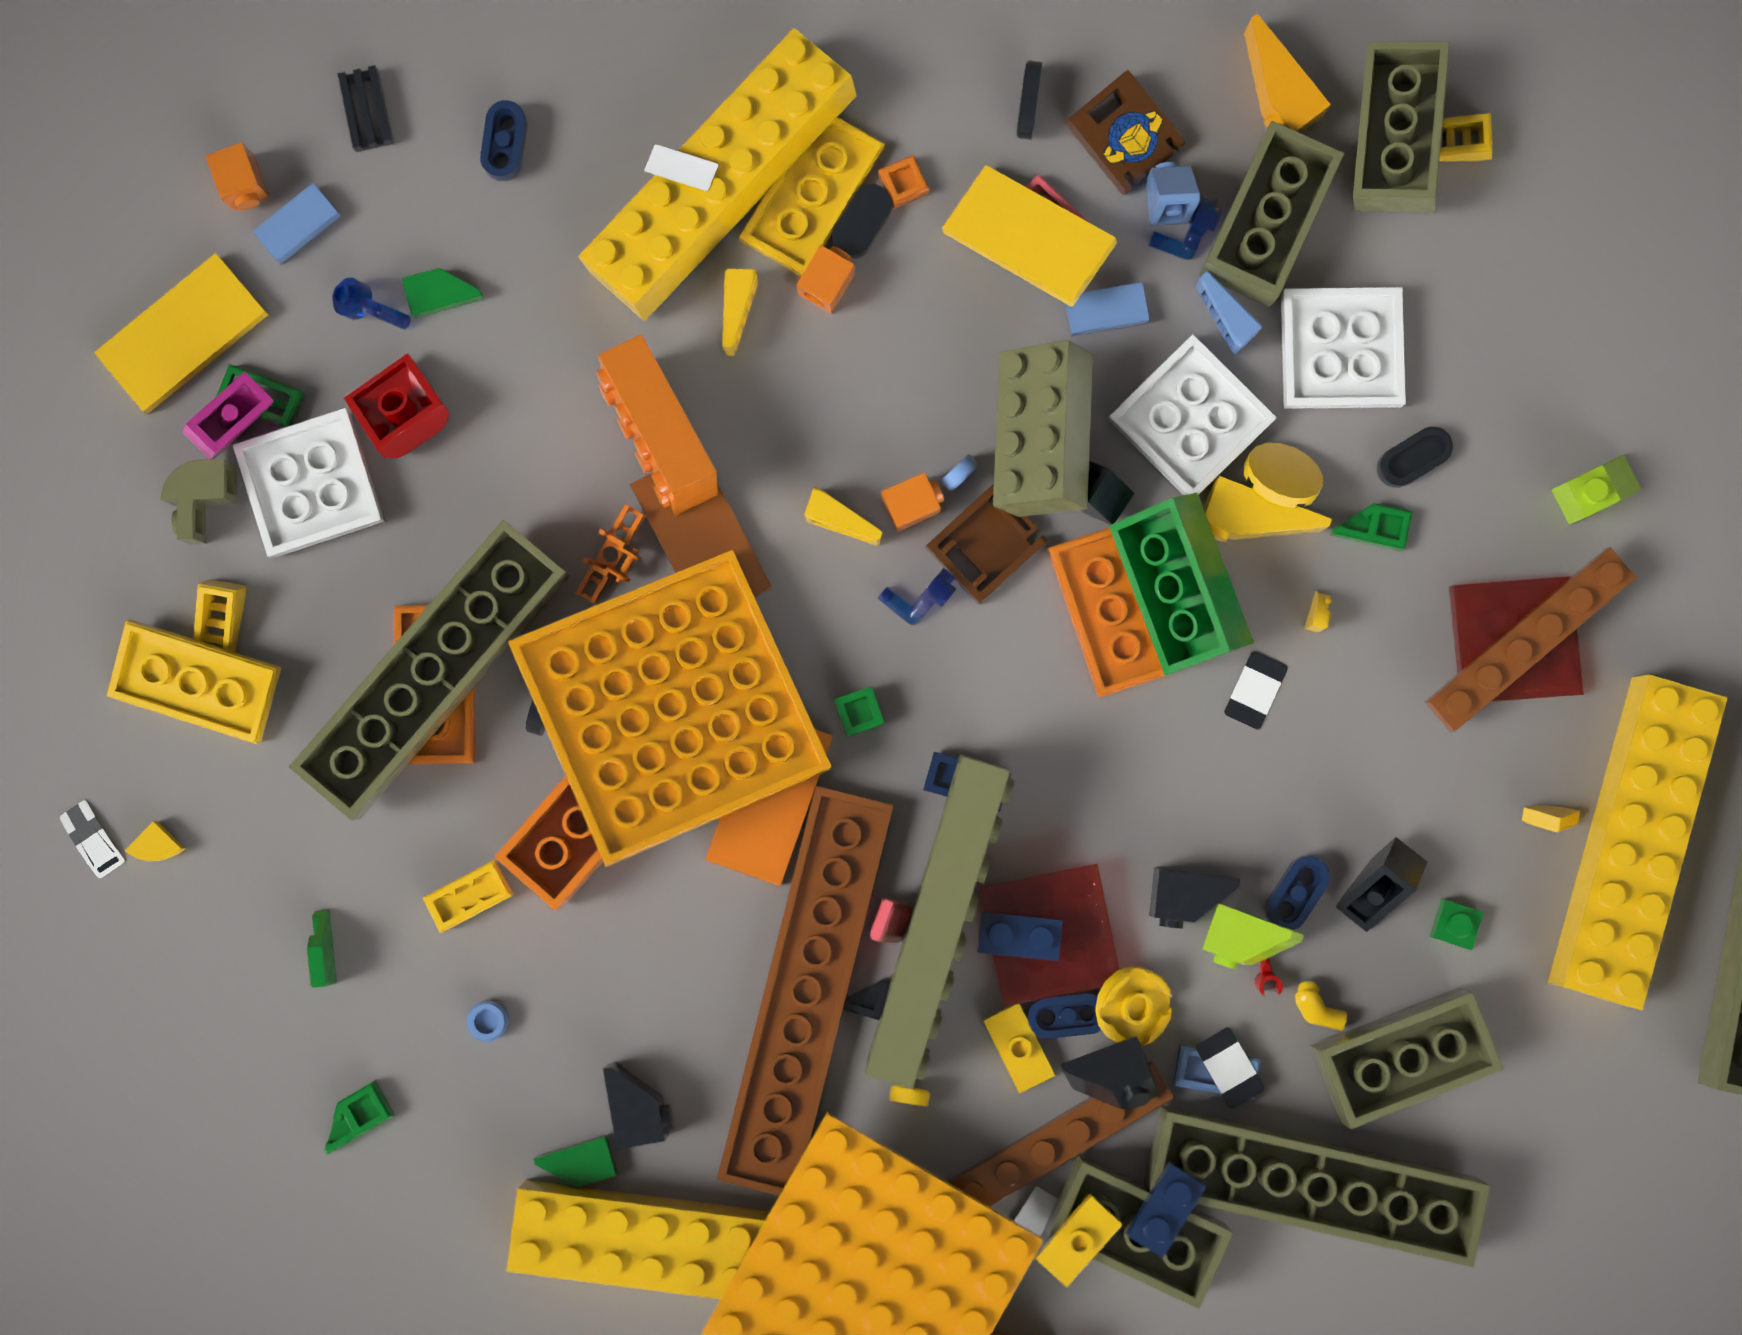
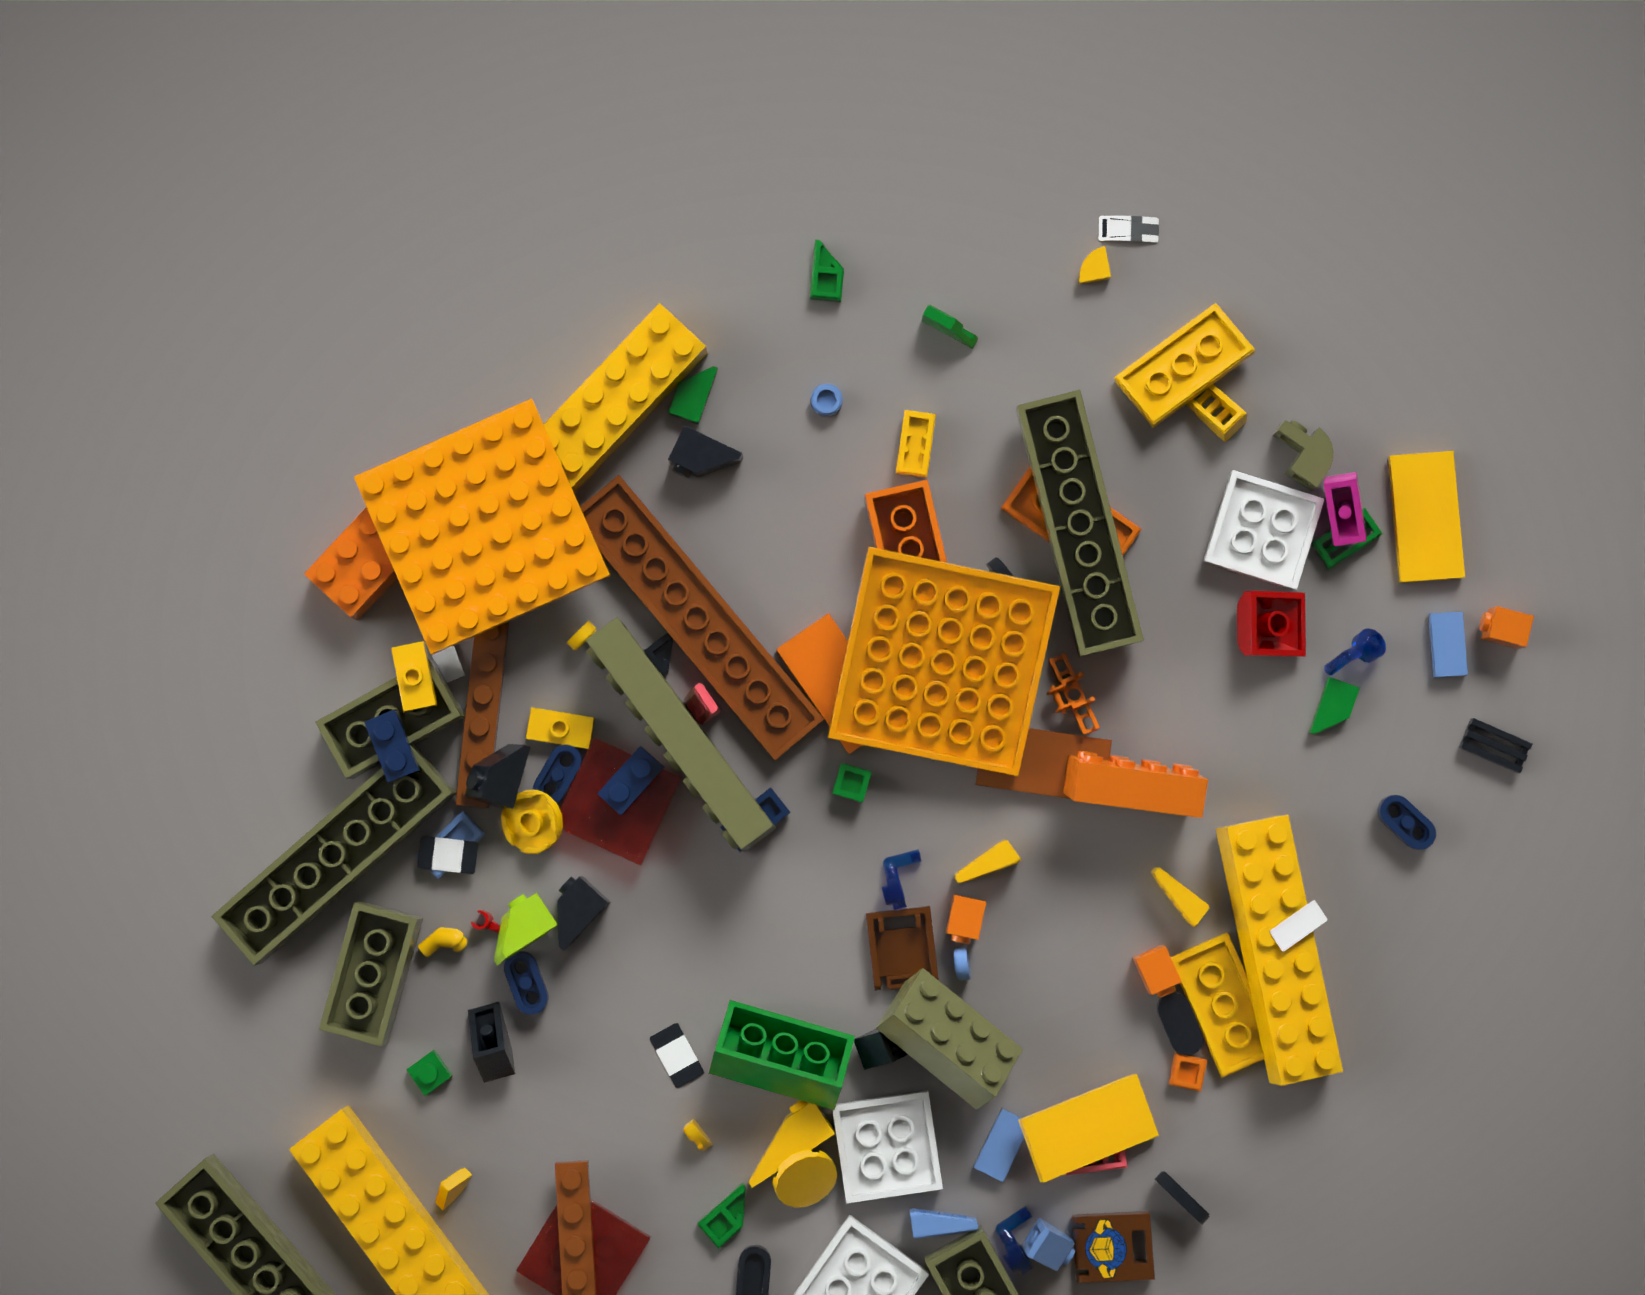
camera: 125 degrees right, 0 degrees up
(1105, 613) = (800, 991): orange tile -> none

